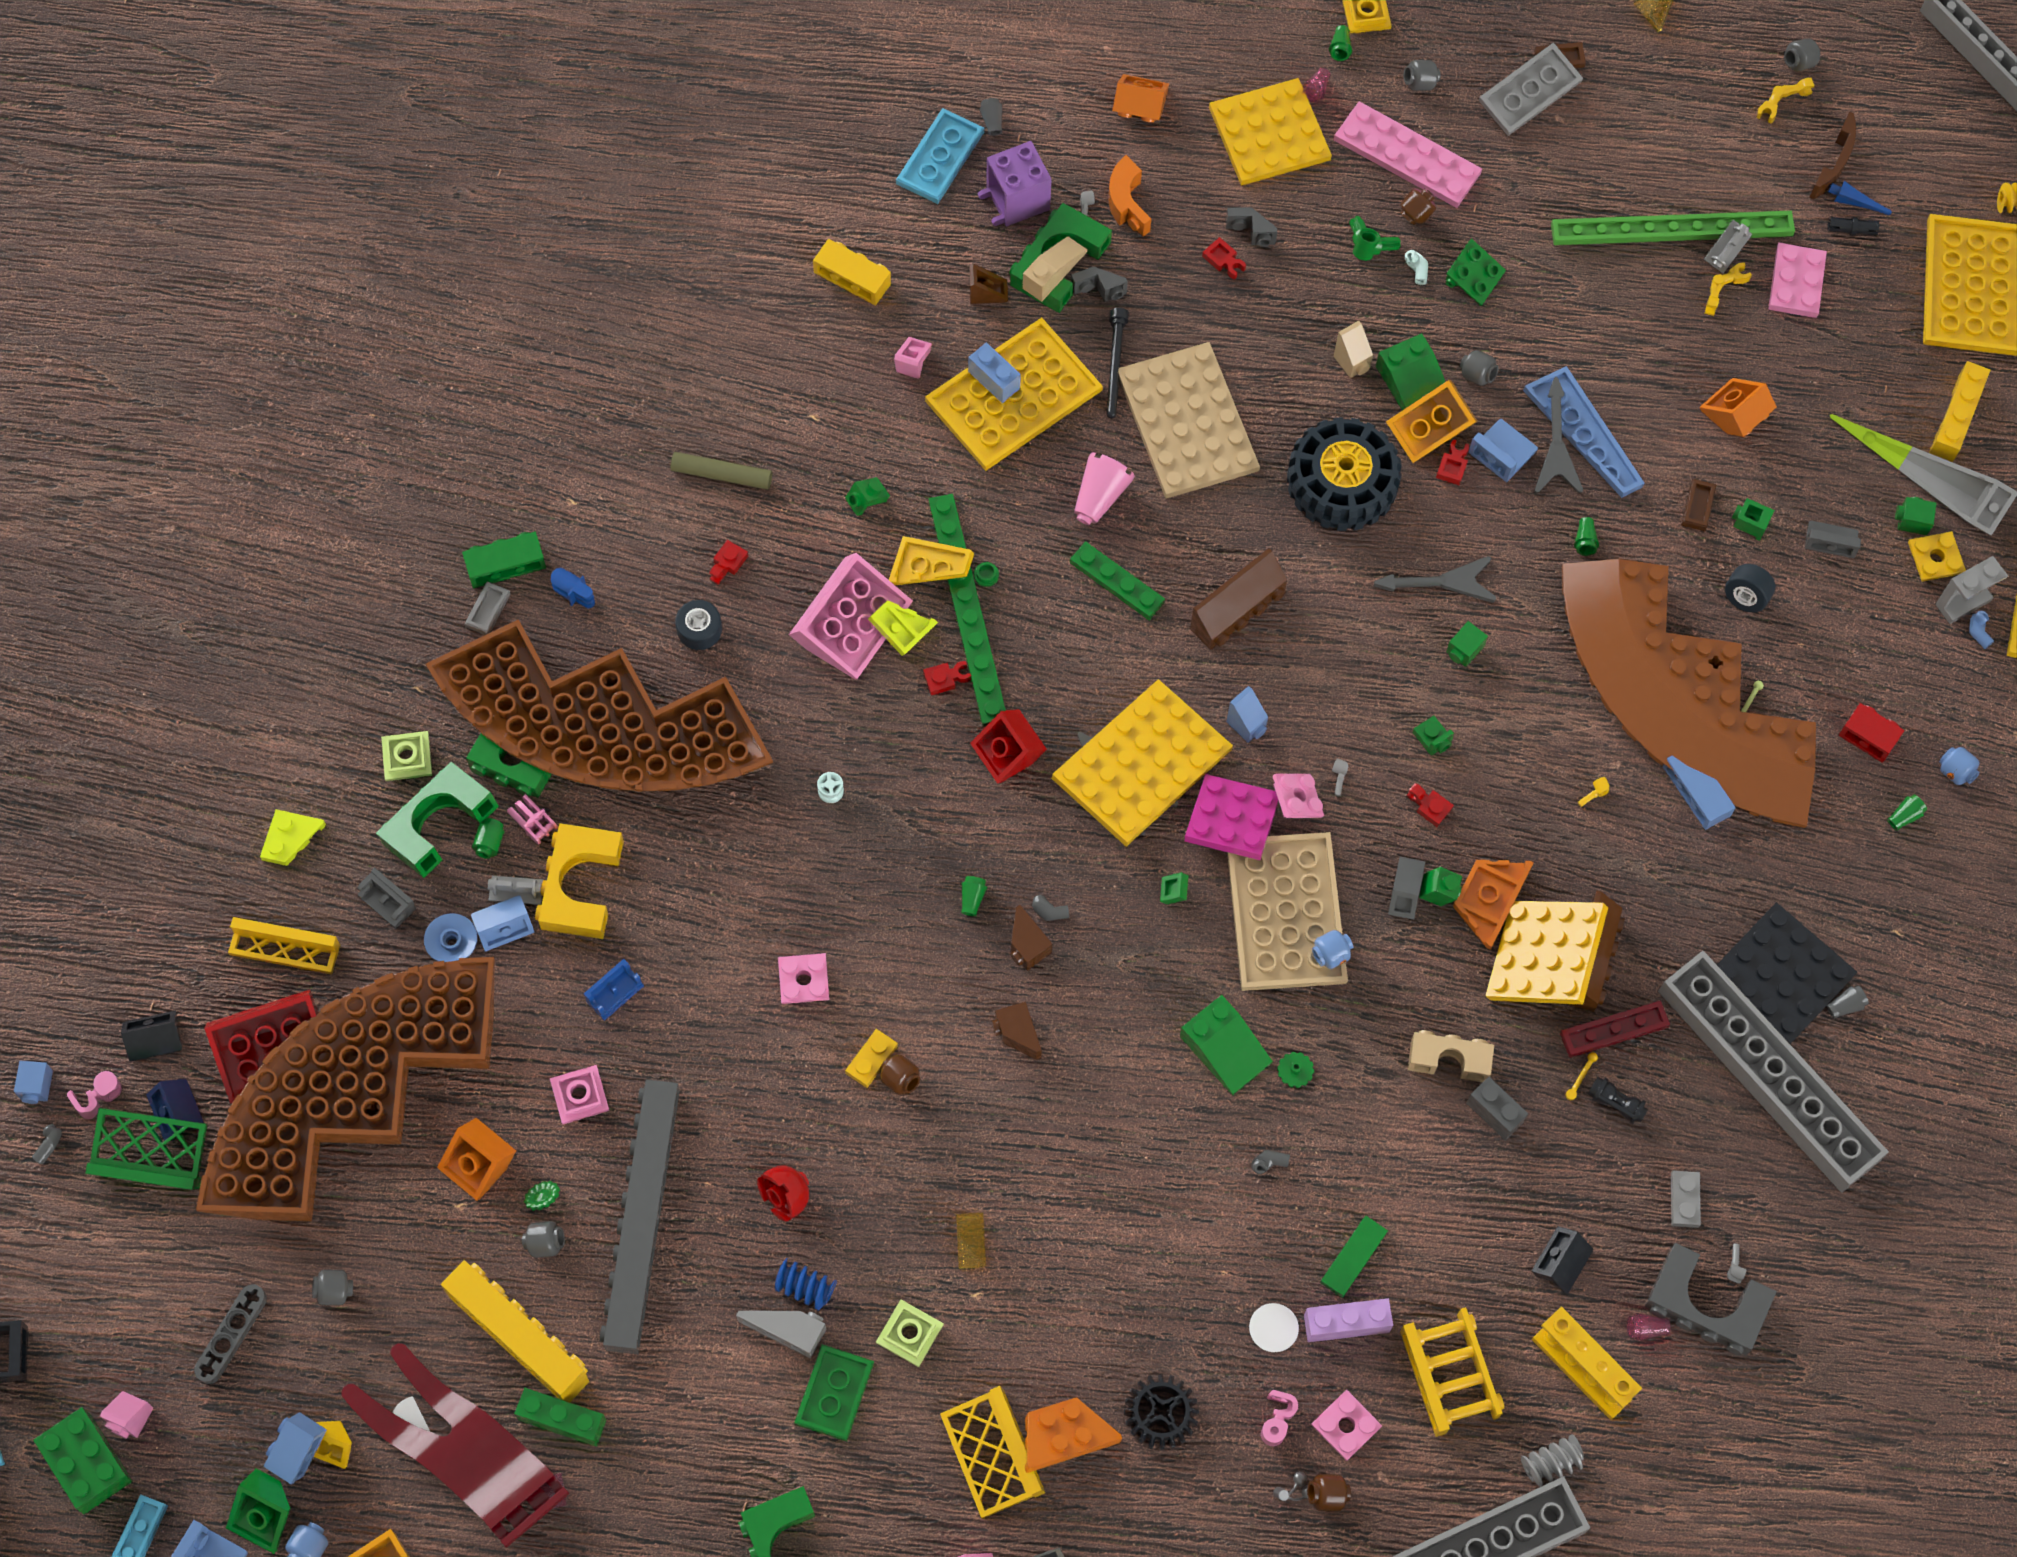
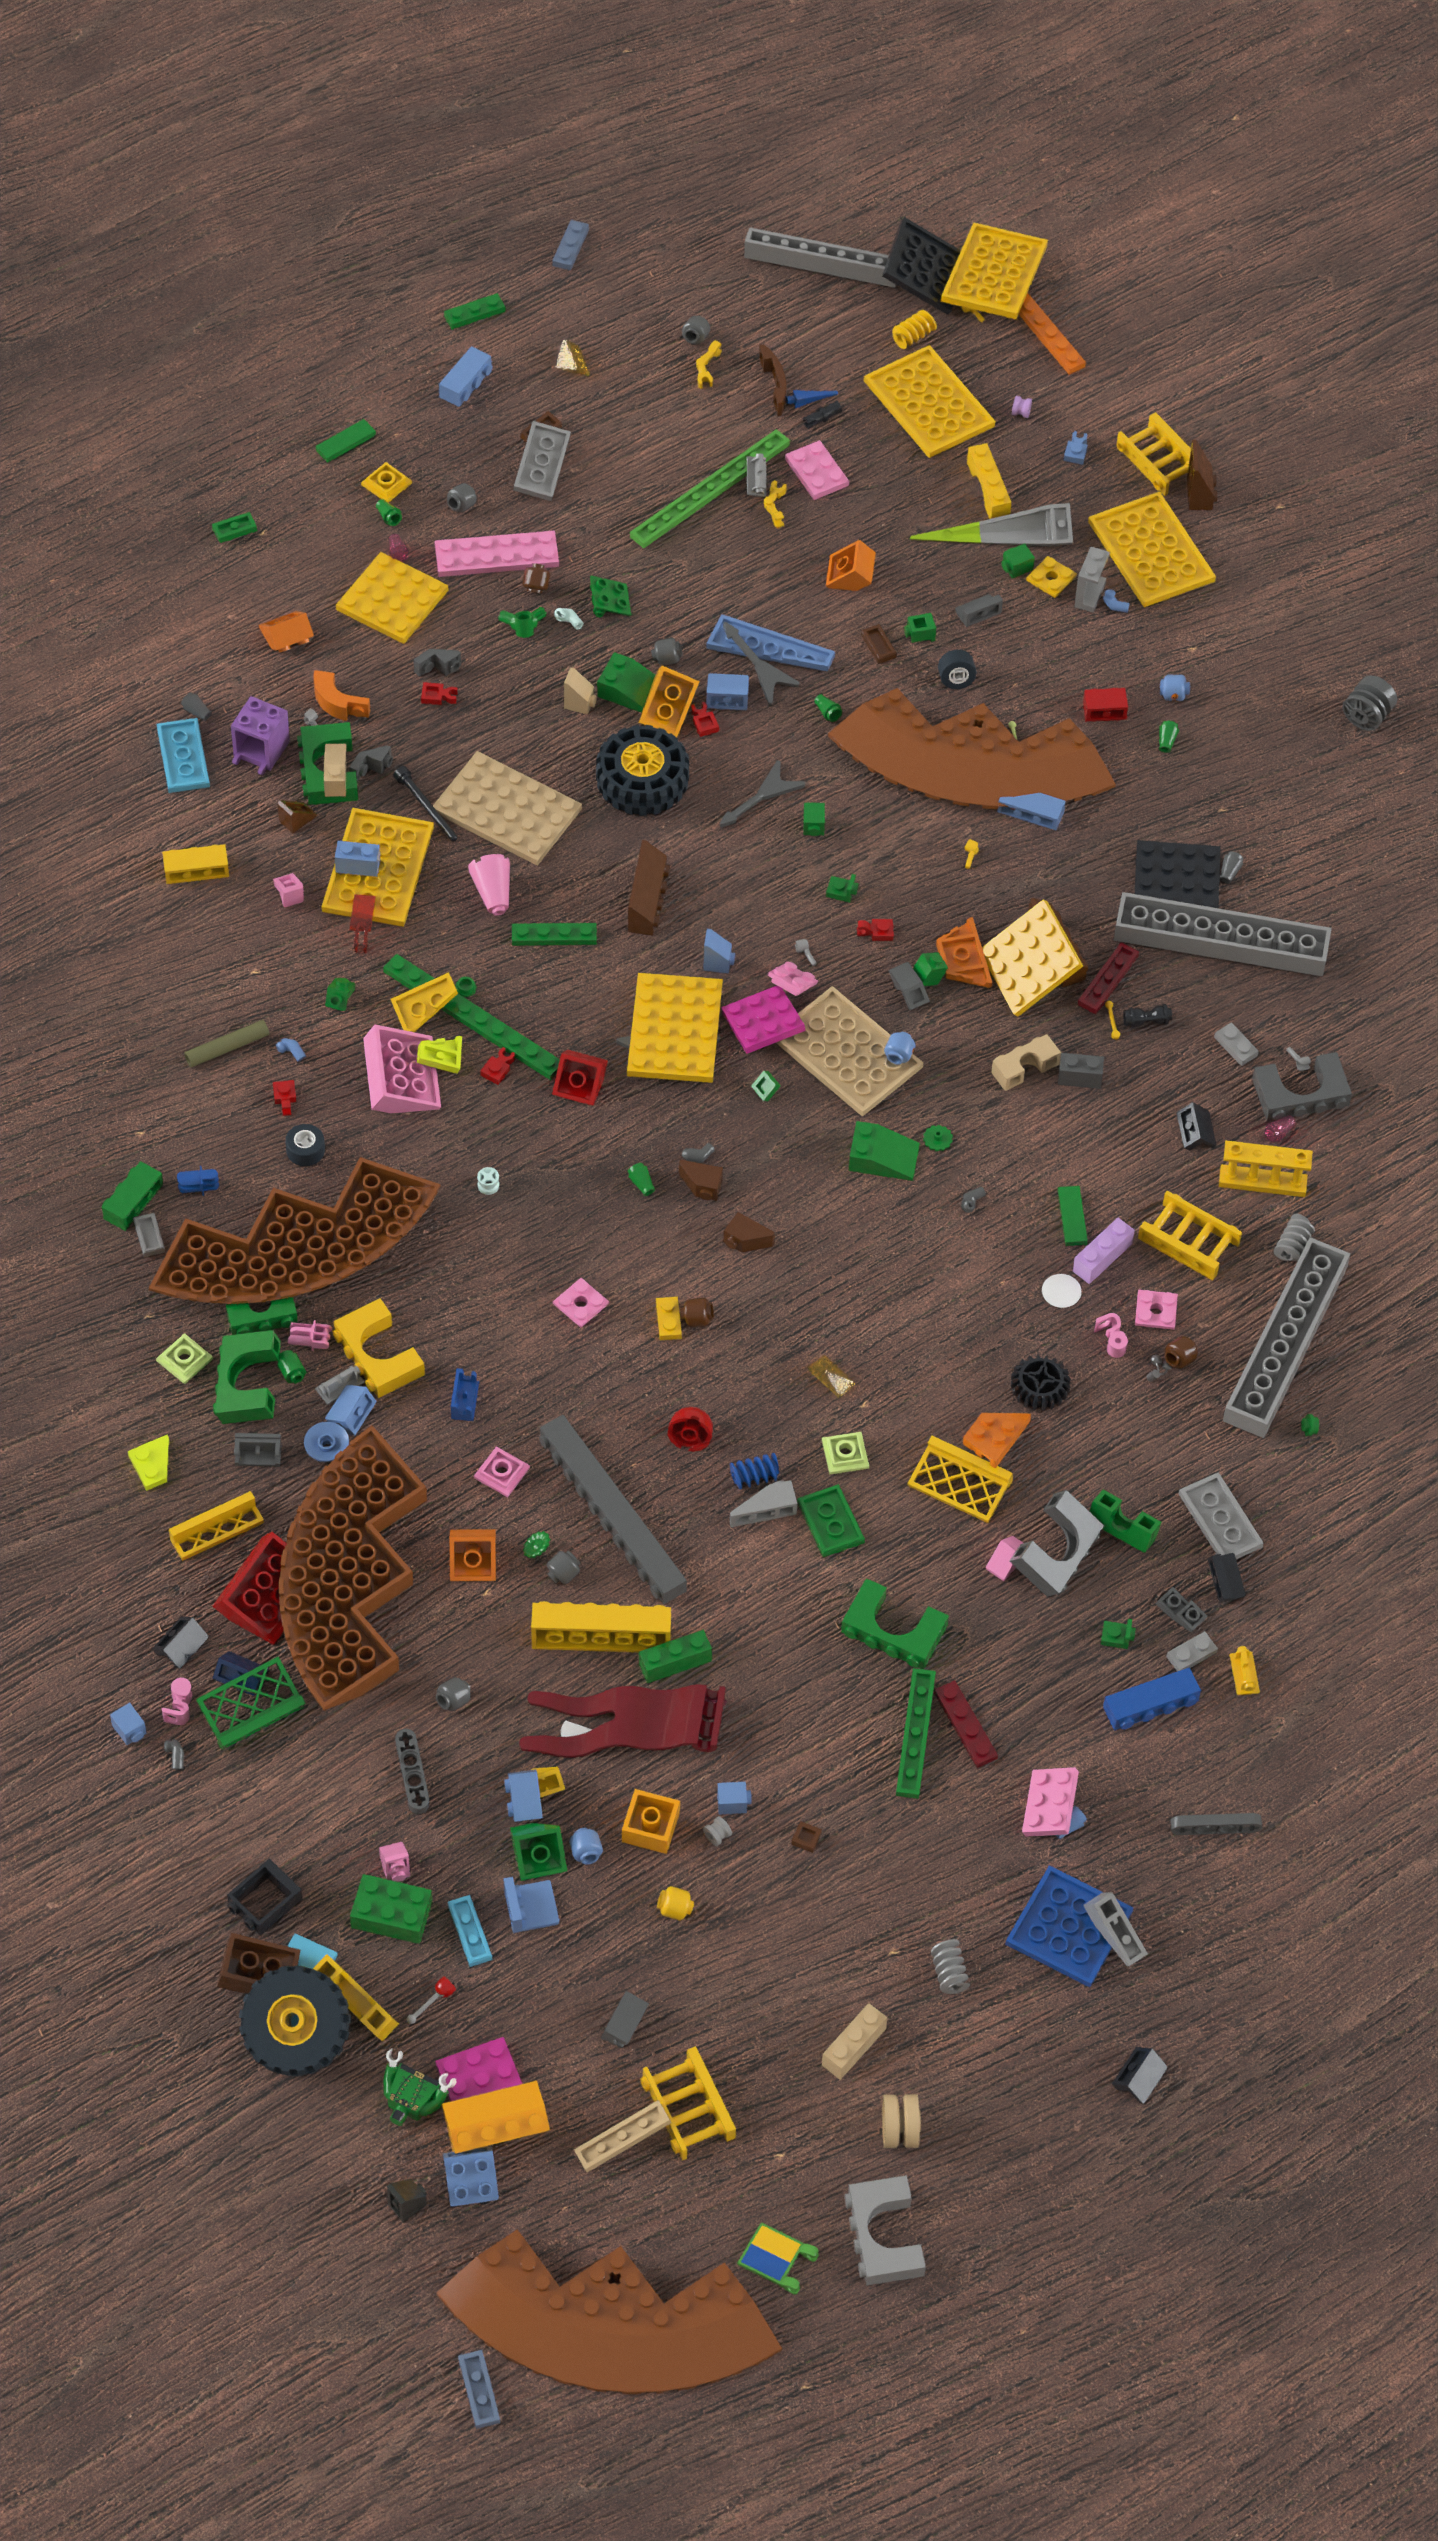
camera: 40 degrees left, 10 degrees down
(777, 518) = (291, 1046): none -> medium blue arm
(948, 436) = (362, 918): none -> clear red arm

